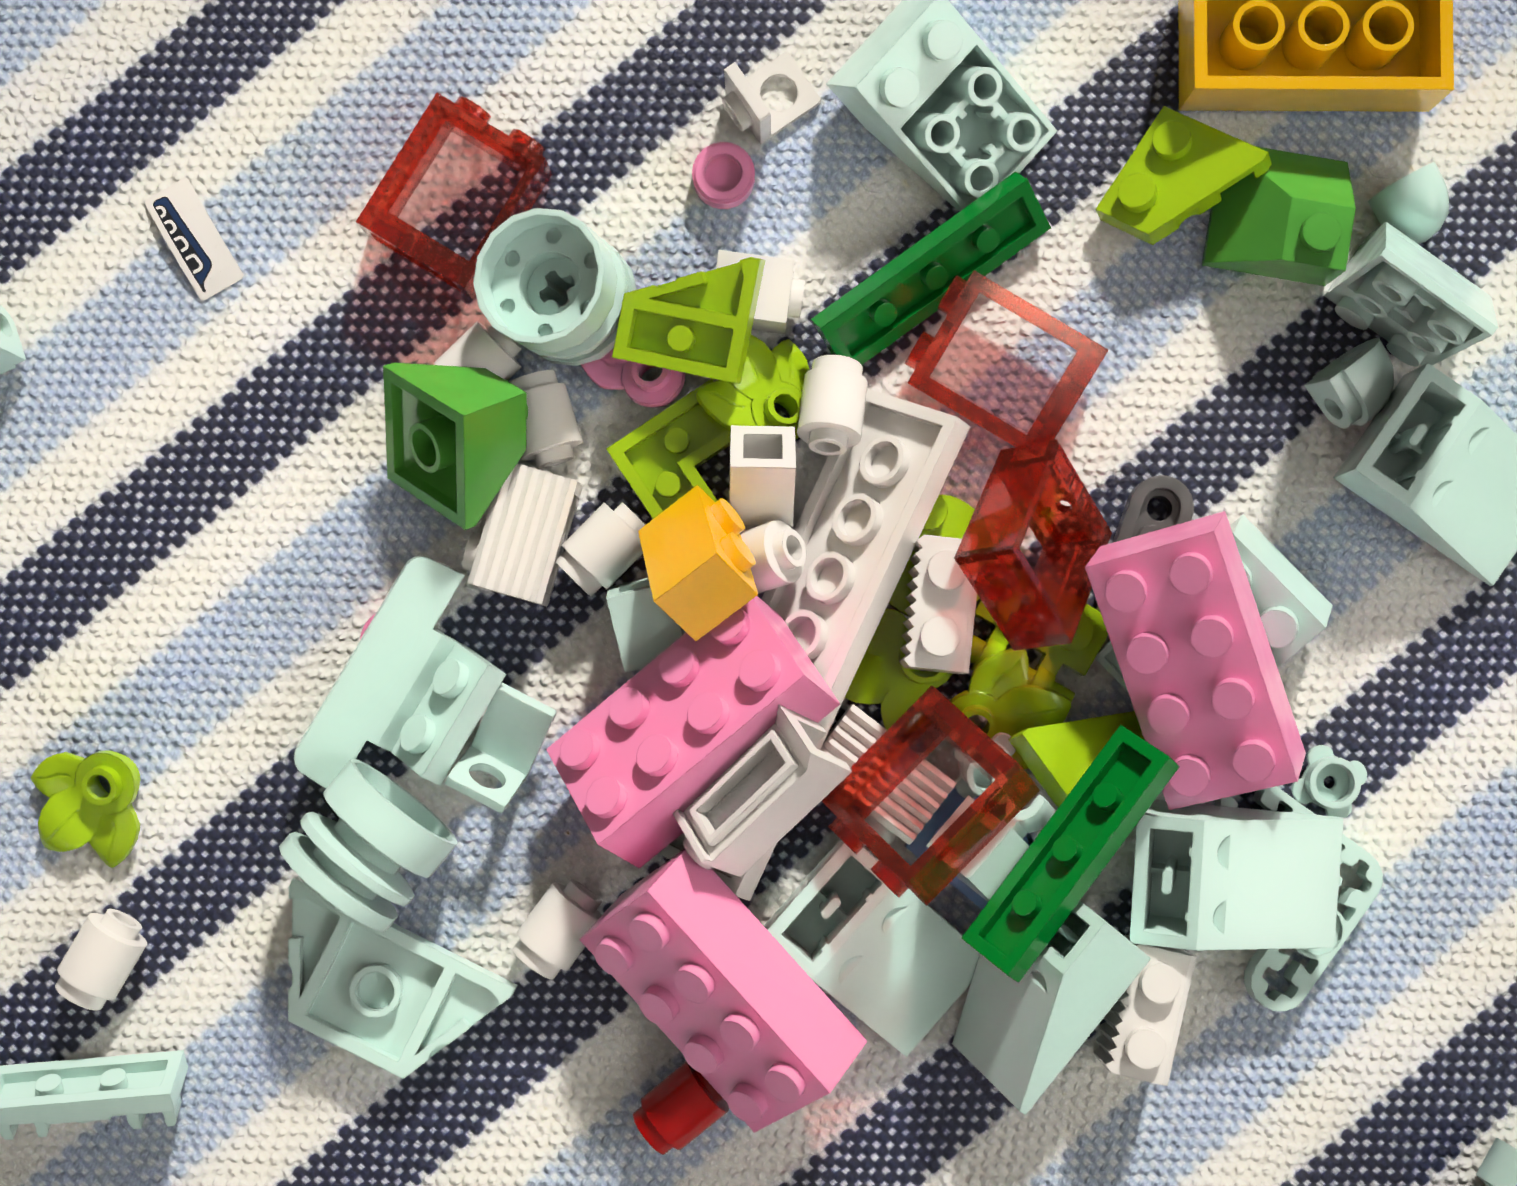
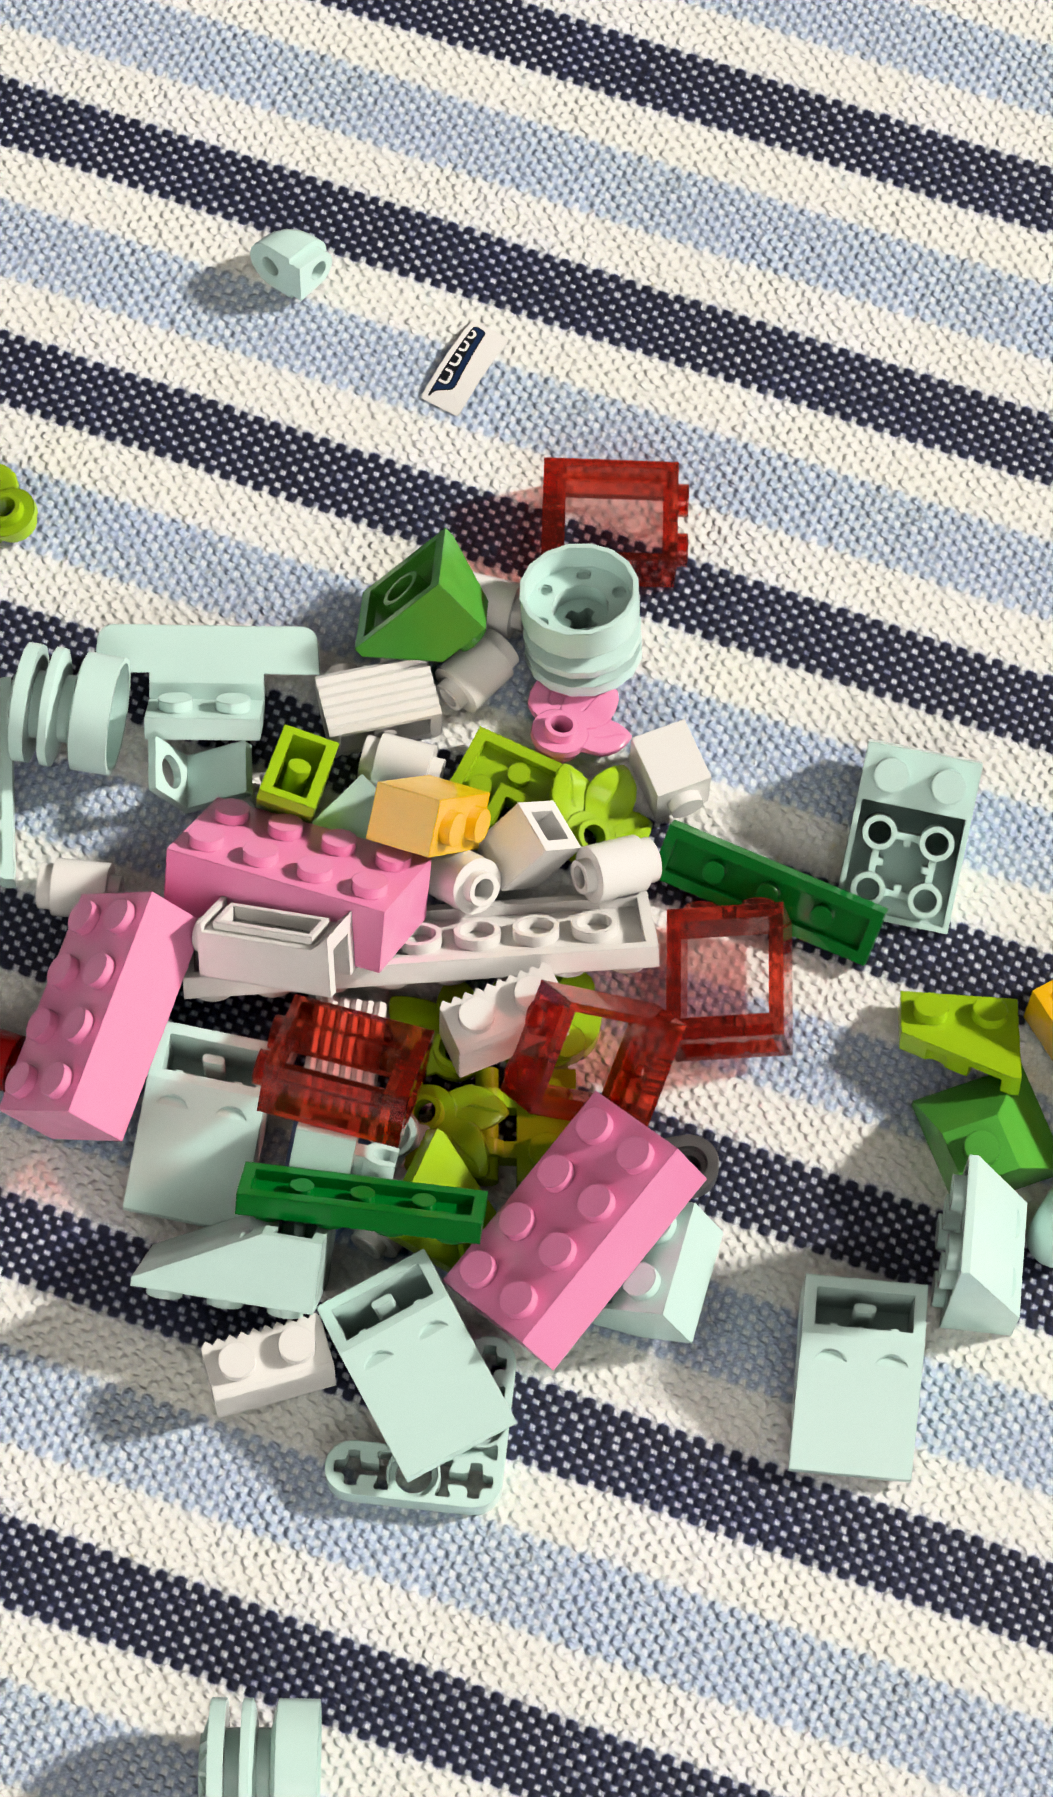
camera: 55 degrees right, 20 degrees down
(572, 663) = (297, 774): none -> lime slope
(693, 323) = (615, 726): lime wing -> none
(723, 175) = (751, 707): bright pink tile -> none
(745, 102) = (818, 693): white bracket -> none
(1347, 777) = (551, 1409): light aqua plate -> none
(1354, 385) = (887, 1259): light aqua piece -> none

